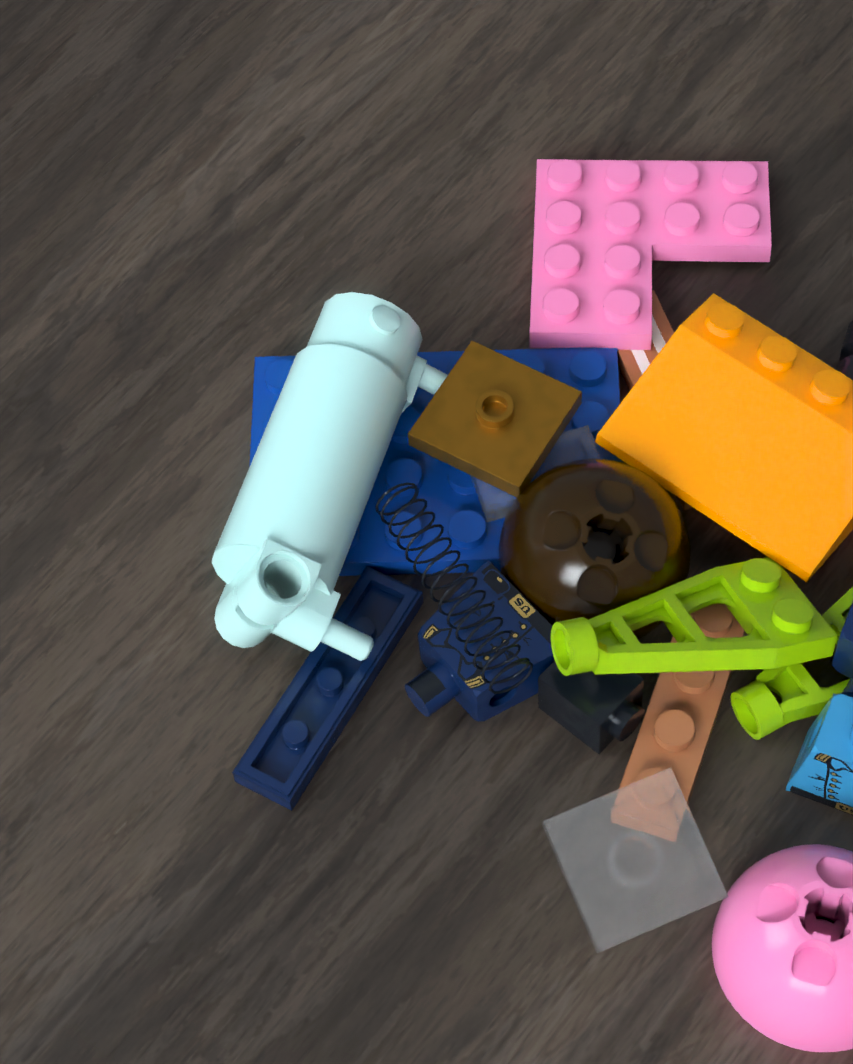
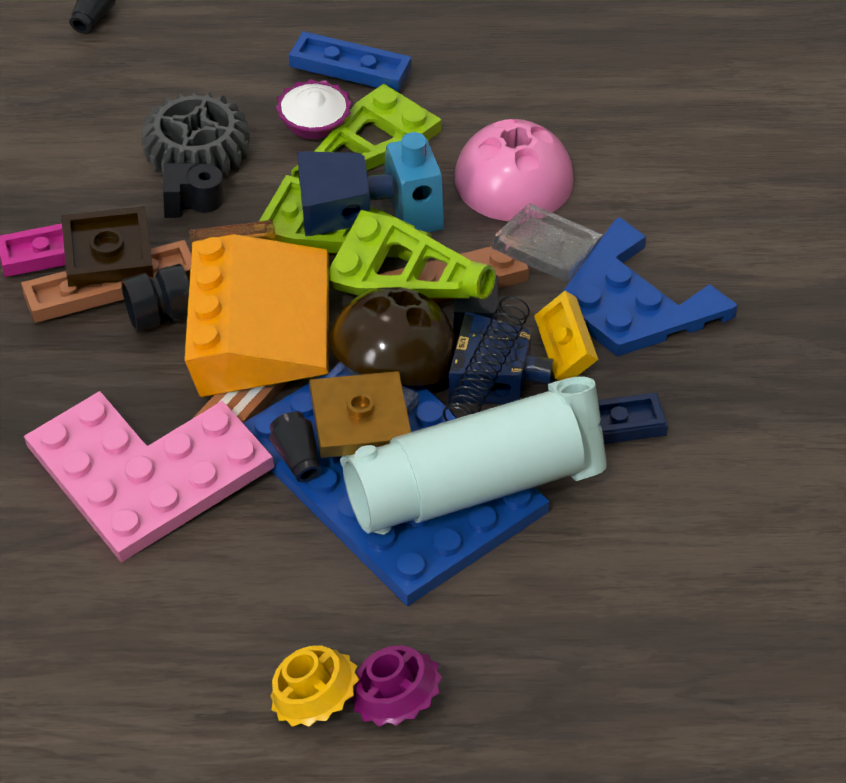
camera: 135 degrees left, 10 degrees down
(163, 277) = (395, 685): none -> magenta piece
(229, 214) = (312, 685): none -> yellow piece
(440, 752) = (566, 336): none -> yellow plate
(470, 885) = (627, 310): none -> blue wing
(521, 340) = (296, 444): none -> black cone

